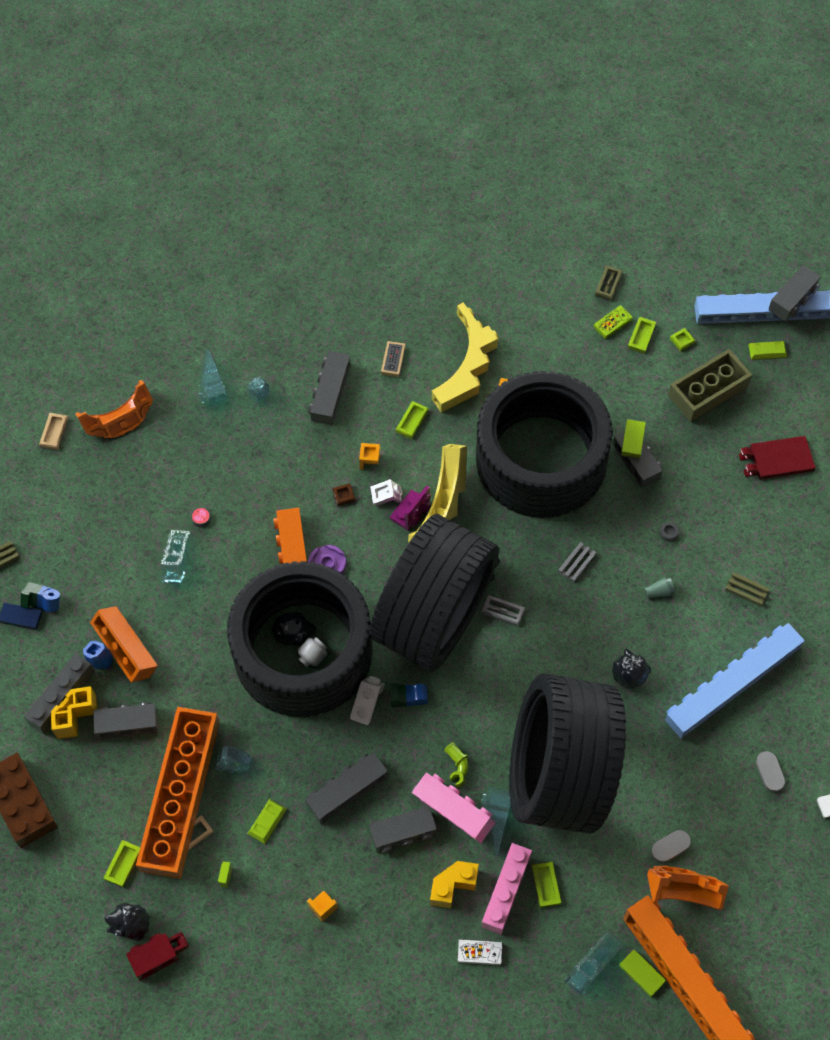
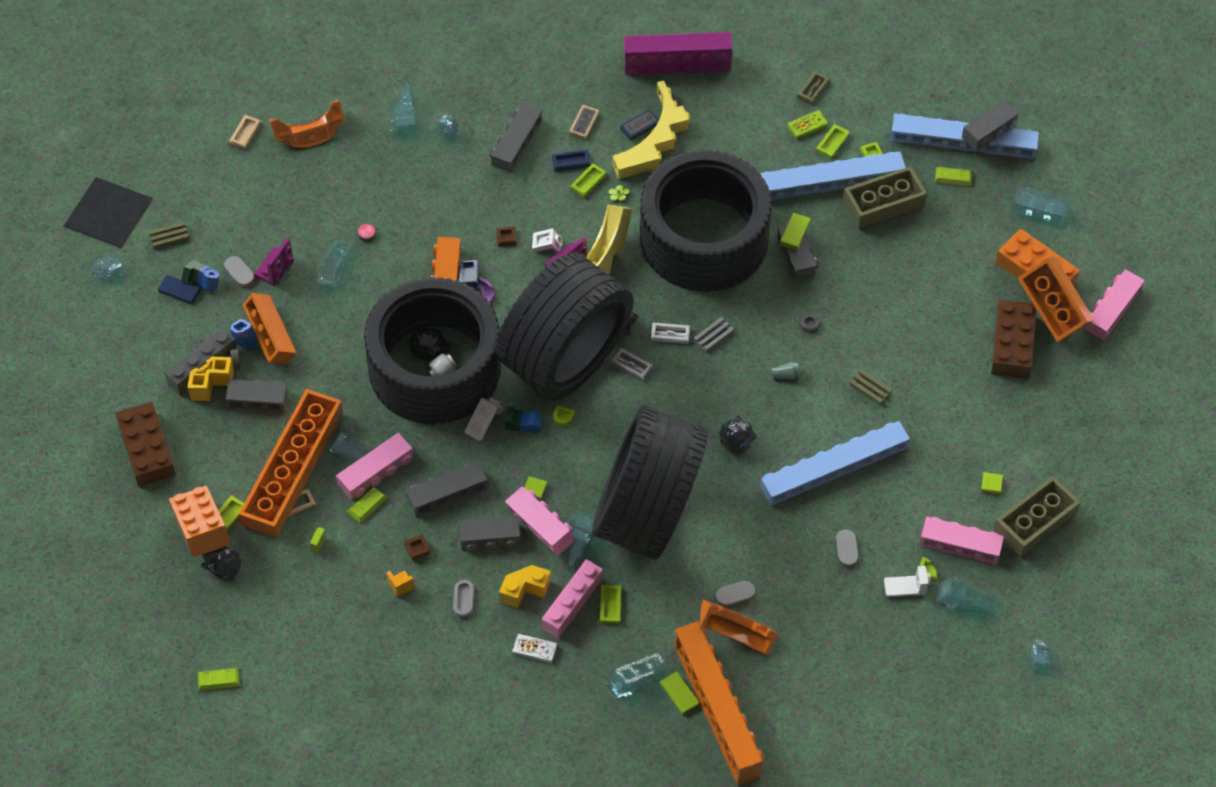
camera: 10 degrees right, 5 degrees down
(78, 584) = (239, 271): none -> light grey tile
(93, 682) = (235, 357): none -> dark grey tile
(95, 883) = (199, 521): none -> orange brick
(114, 570) = (276, 263): none -> magenta bracket
(155, 954) = (241, 594): dark red brick -> none
(267, 777) = (375, 466): none -> bright pink brick
(315, 544) = (469, 272): none -> tile
(331, 861) = (417, 547): none -> reddish brown plate
(369, 454) = (538, 202): light orange panel -> none
(389, 401) = (571, 160): none -> dark blue tile
(392, 909) = (463, 599): none -> light grey tile
(437, 766) = (537, 486): none -> lime tile
(446, 428) = (620, 193): none -> lime plant
(447, 681) = (563, 416): none -> lime tile
(449, 351) = (639, 124): none -> tile
(461, 762) = (558, 487): lime piece -> none
(470, 271) = (677, 53): none -> magenta brick
(550, 573) = (670, 336): none -> white tile
(655, 369) = (830, 175): none -> light blue brick
(778, 458) = (934, 275): dark red tile -> none

